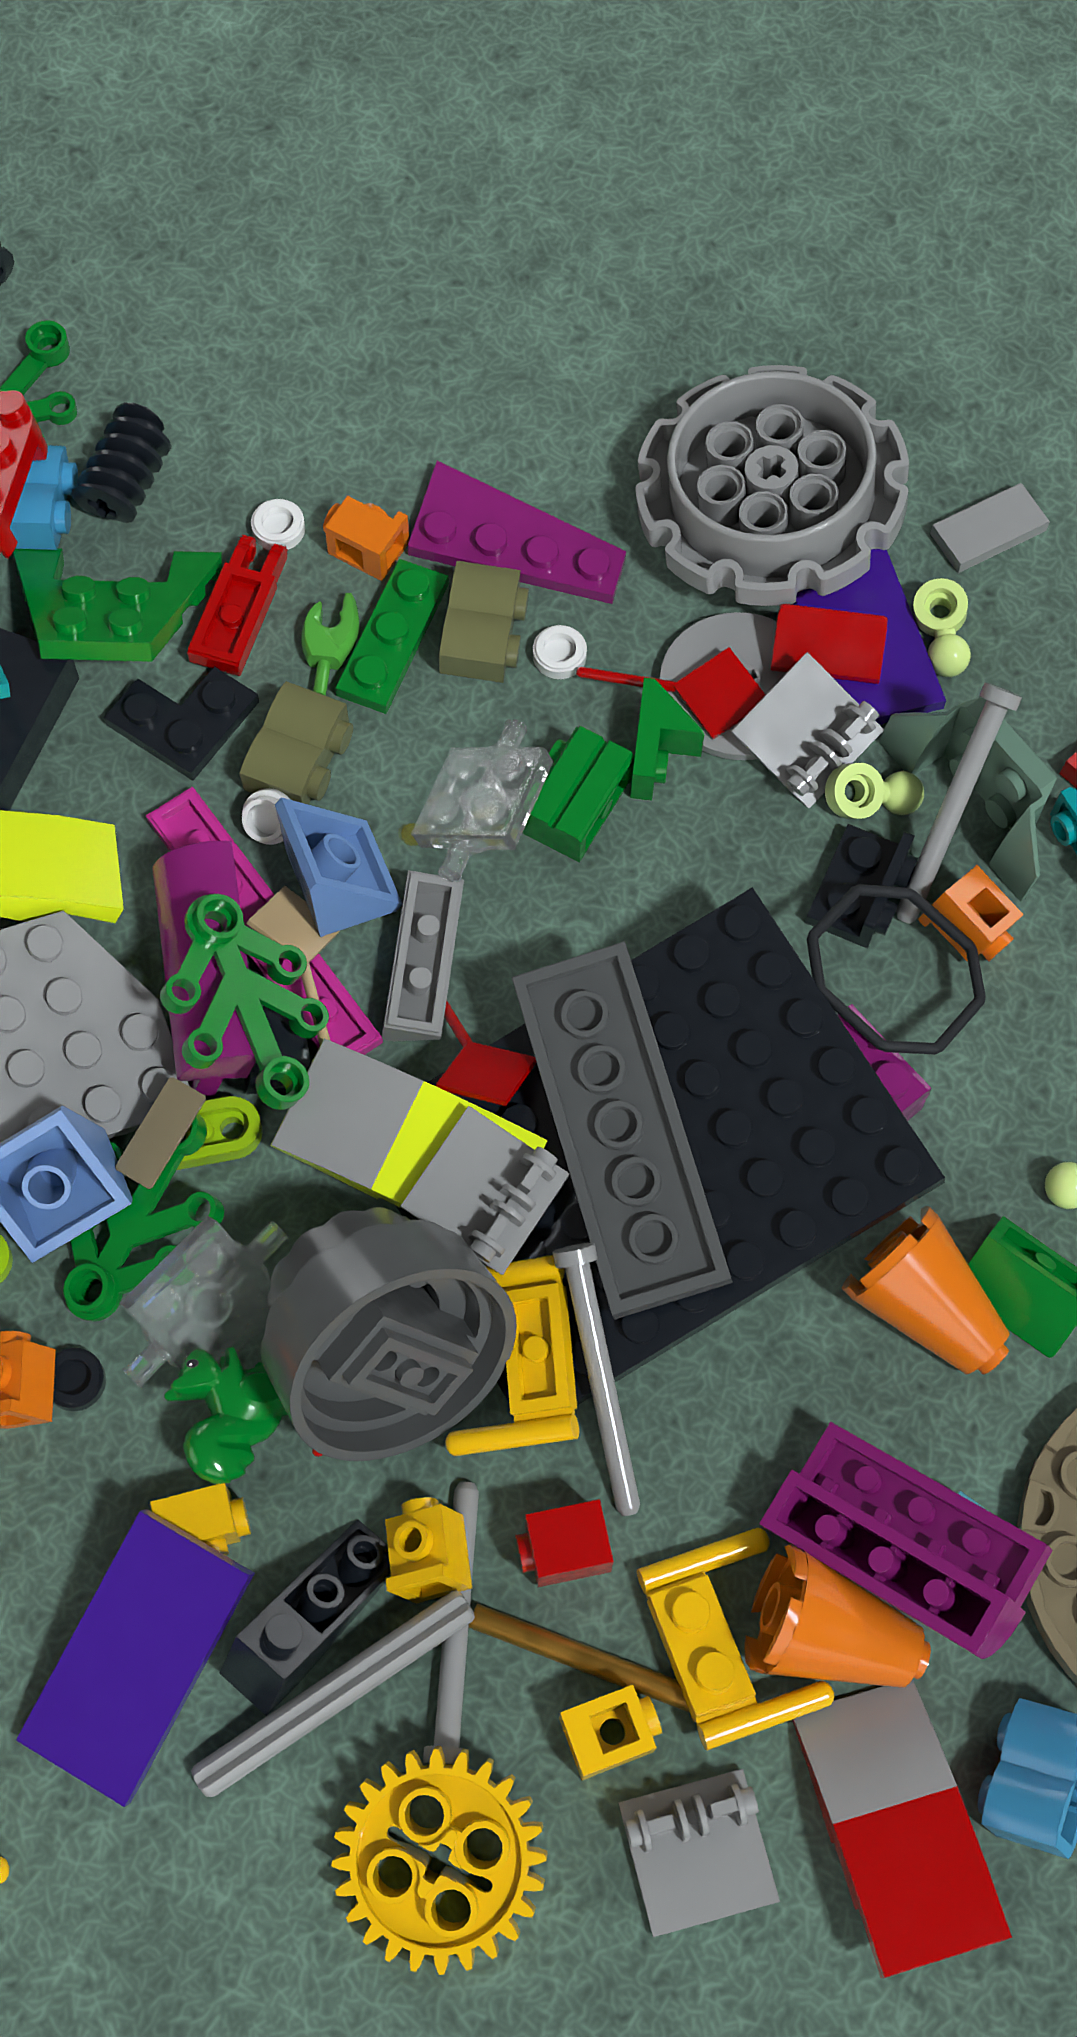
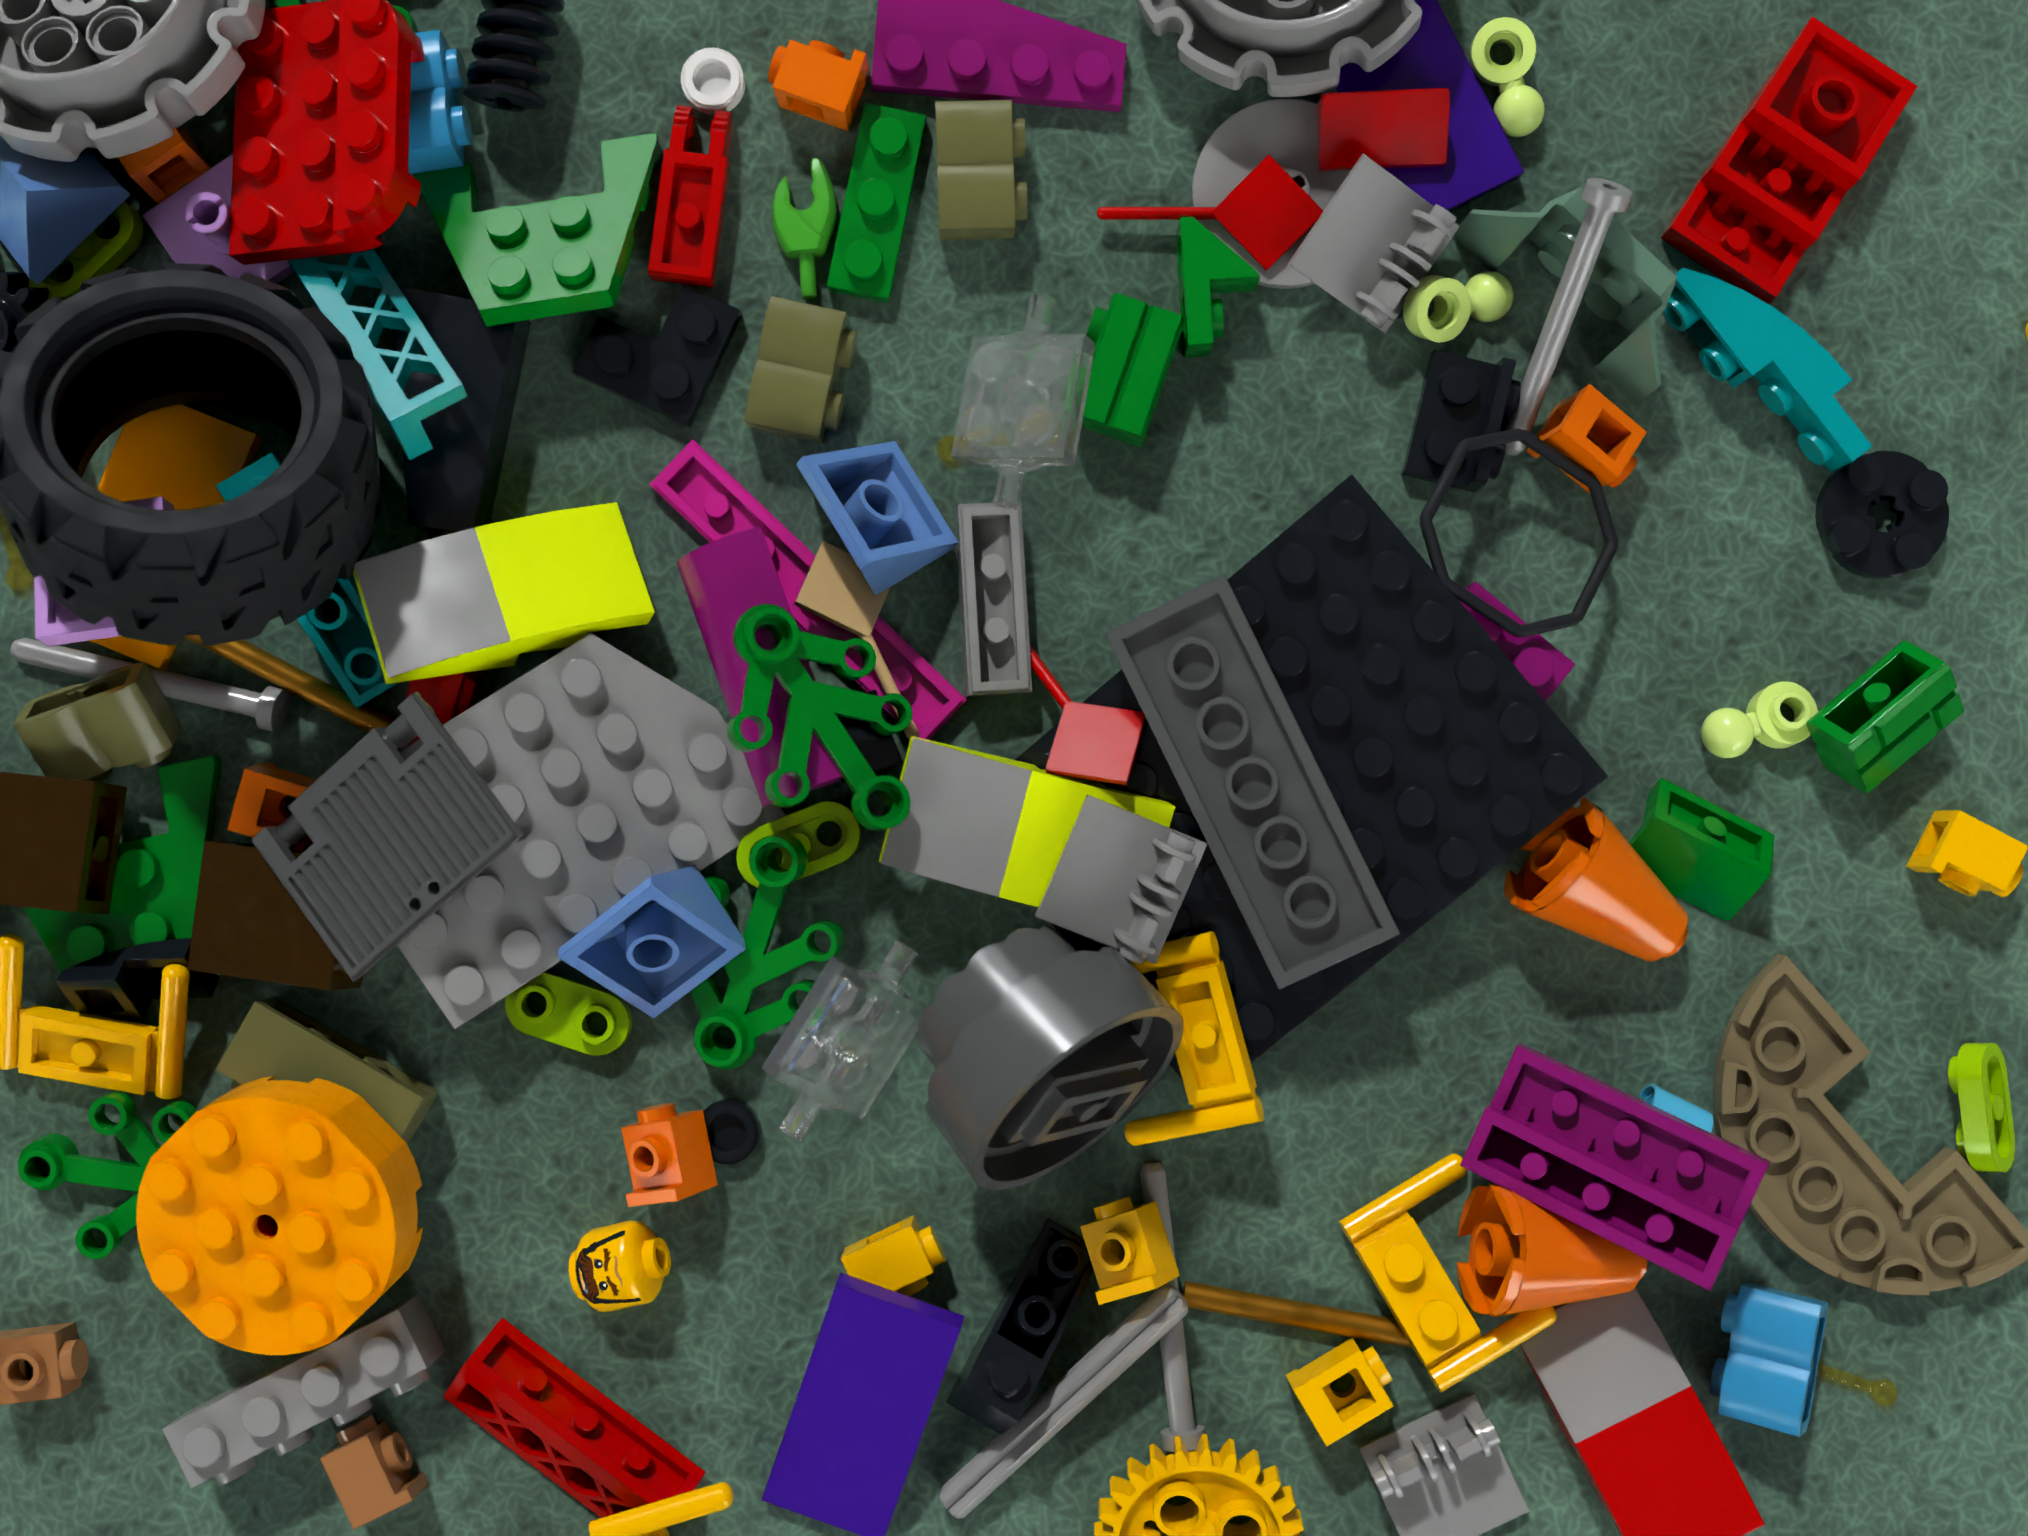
camera: 10 degrees left, 20 degrees up
(160, 1132) = (759, 870): dark tan sticker -> none
(241, 1410) = (910, 1146): green animal -> none
(260, 816) = (778, 458): white plate -> none
(559, 652) = (1072, 188): white tile -> none
(565, 1543) = (1266, 1217): red brick -> none
(576, 1262) = (1232, 940): light grey bar -> none

